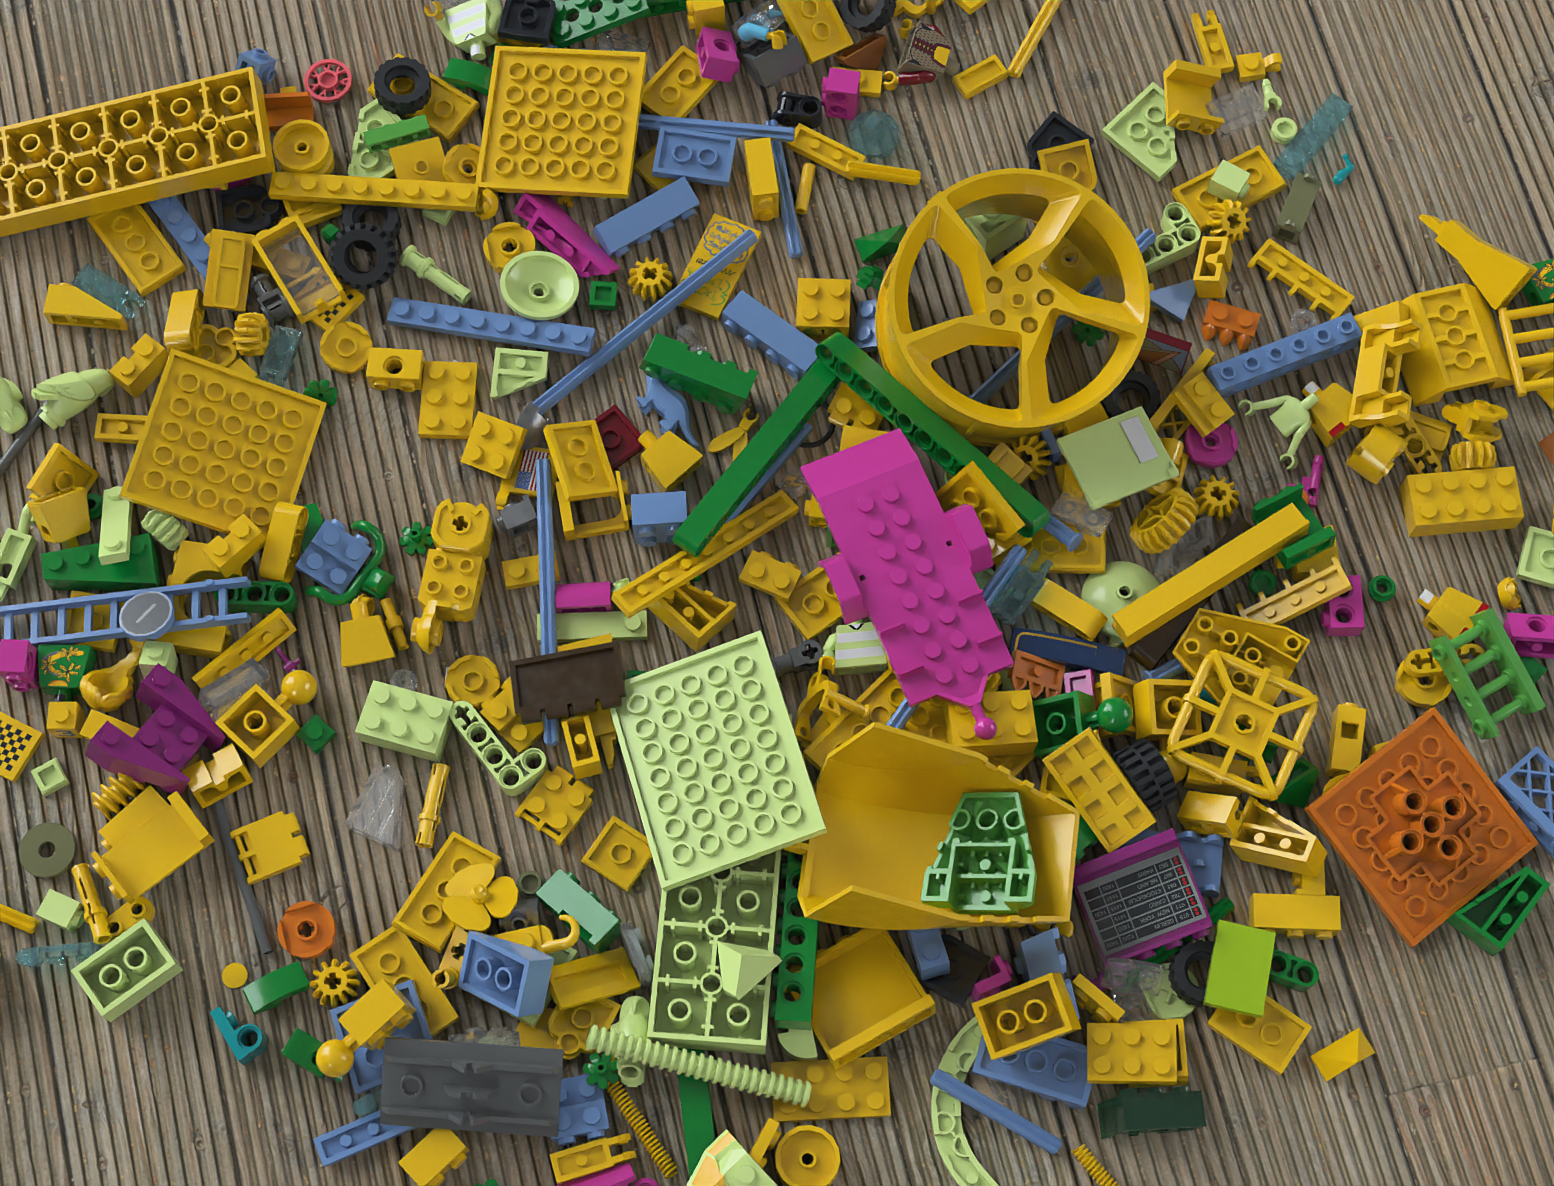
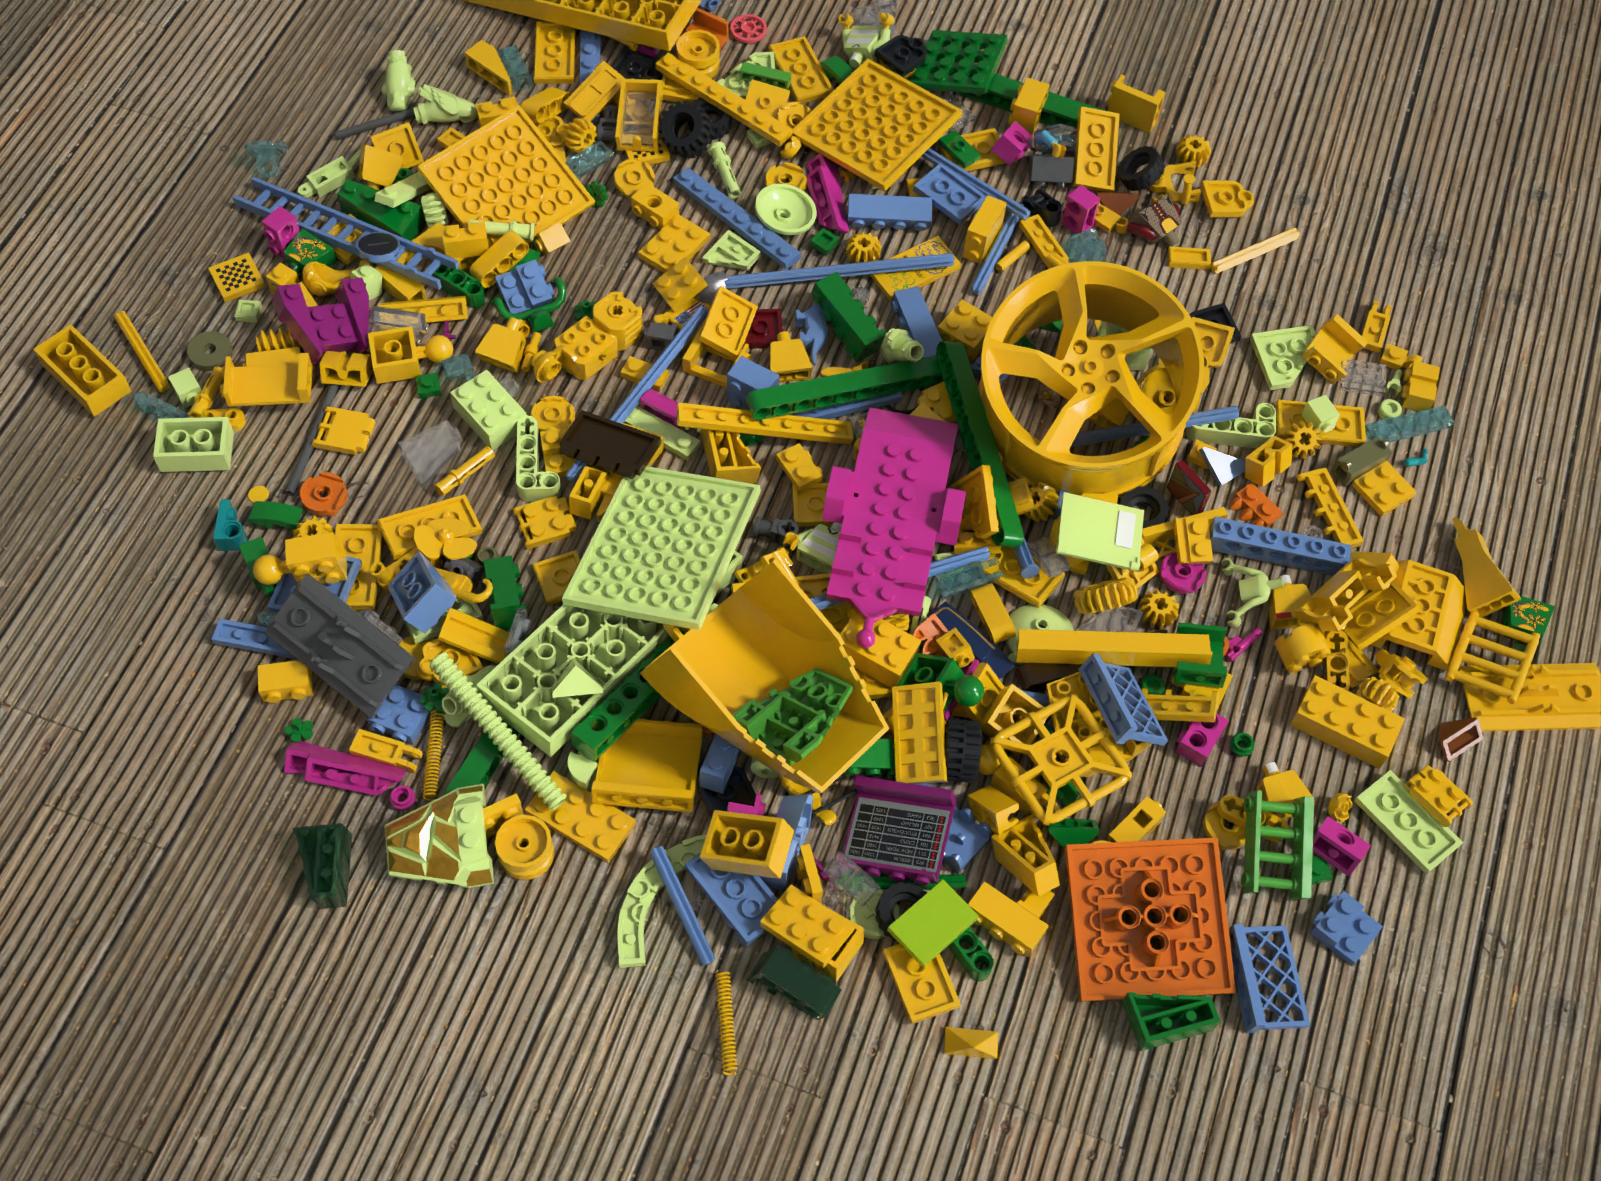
camera: 30 degrees right, 10 degrees down
(271, 496) = (525, 231): none -> yellowish green pin
(317, 480) = (551, 239): none -> yellow brick
(337, 695) = (458, 366): none -> clear light blue panel
(399, 68) = (792, 40): black tyre -> none
(667, 95) = (959, 149): none -> green plate
(780, 375) = (900, 347): none -> yellowish green animal
(1063, 673) = (956, 647): none -> yellow bracket
(1258, 639) = (1112, 704): none -> medium blue fence
(1297, 86) = (1420, 386): none -> yellow brick
(1333, 223) = (1384, 488): none -> yellow plate
(1427, 372) = (1378, 614): none -> yellow plate

